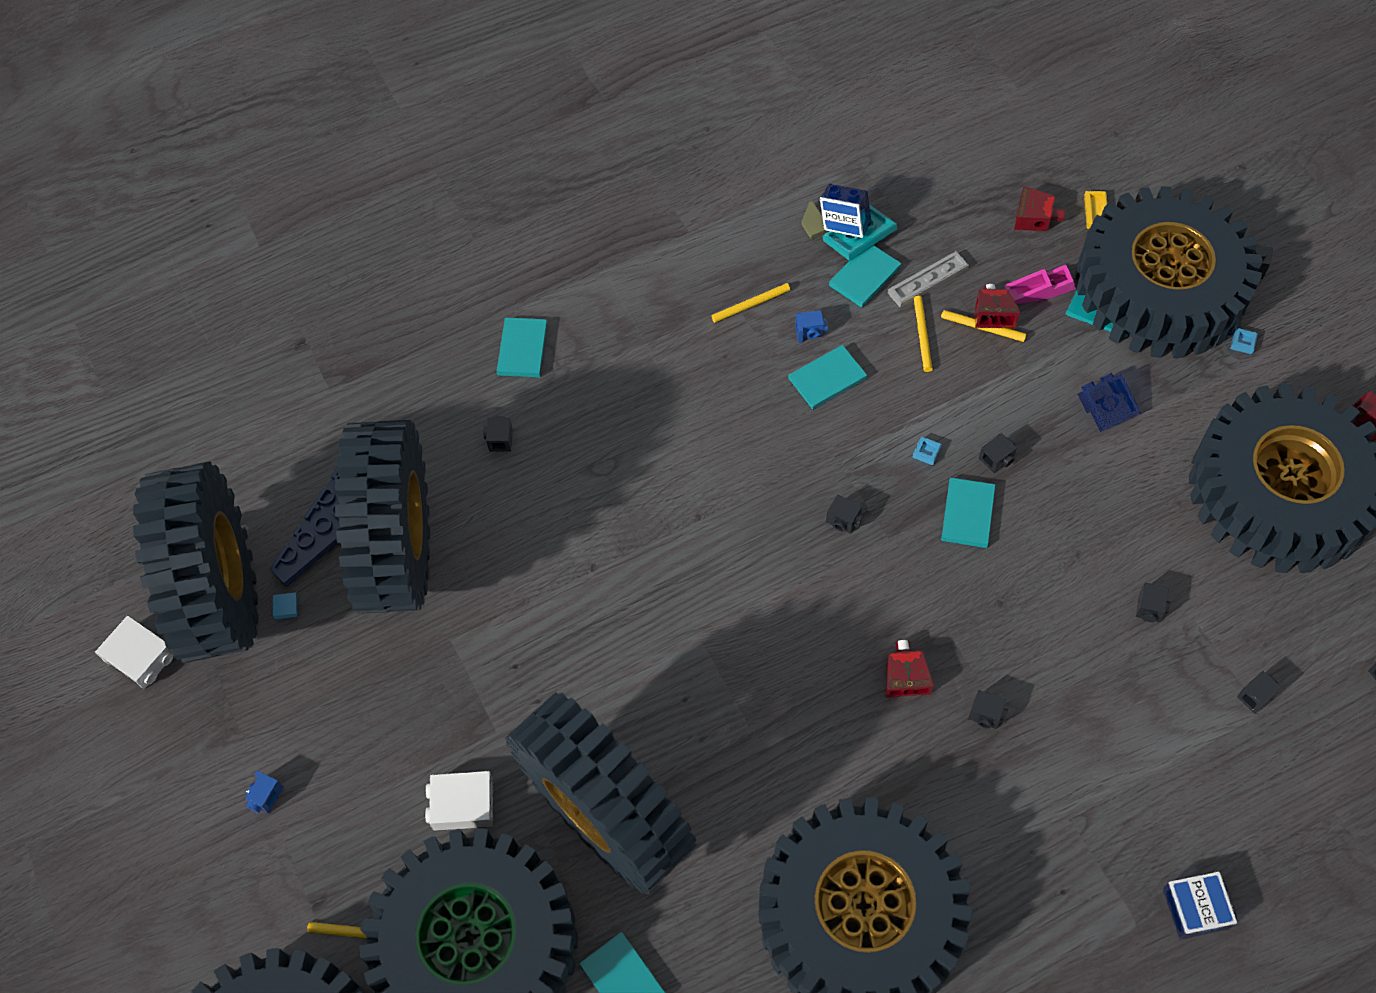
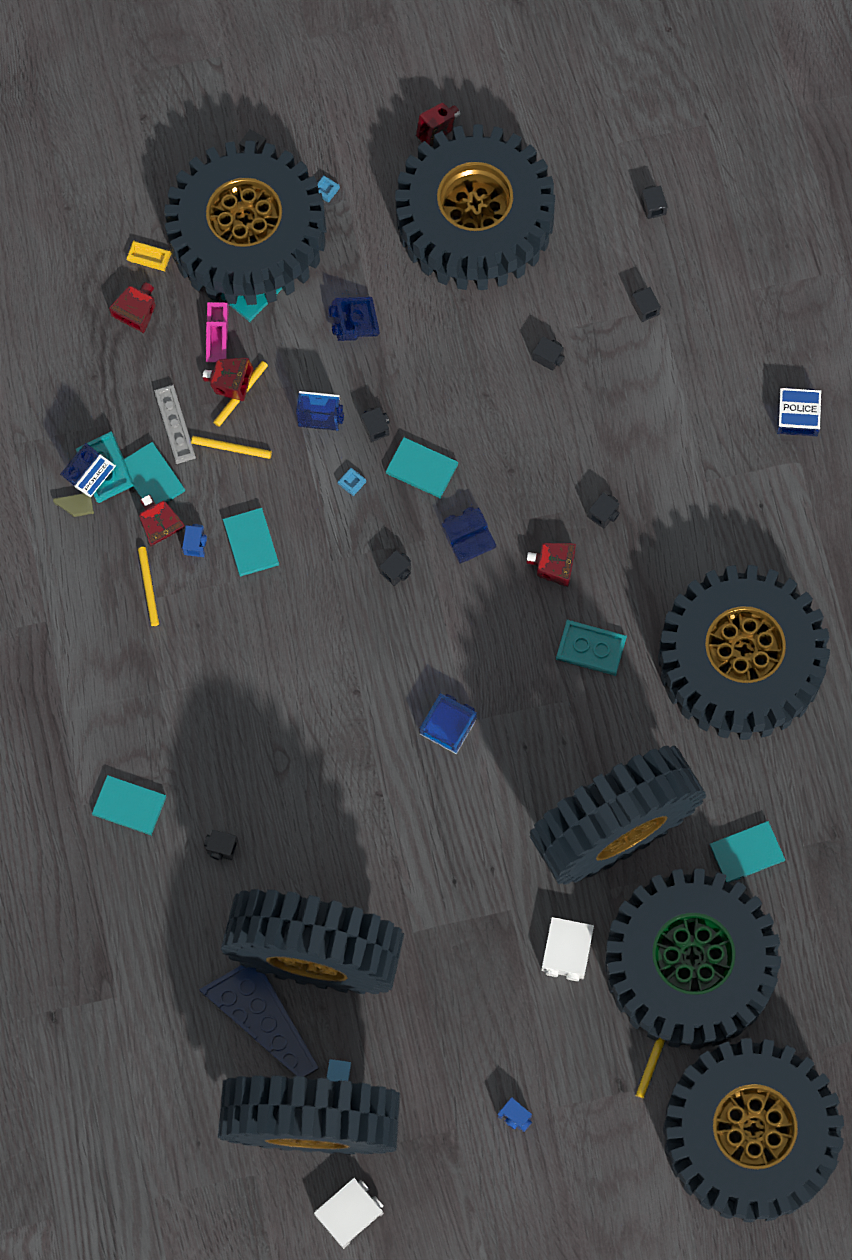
camera: 75 degrees left, 10 degrees up
(686, 610) = (448, 722): none -> clear blue piece
(818, 288) = (158, 520): none -> torso
(821, 740) = (591, 647): none -> teal tile
(908, 576) = (468, 534): none -> clear blue plate
(989, 393) = (319, 411): none -> clear blue piece

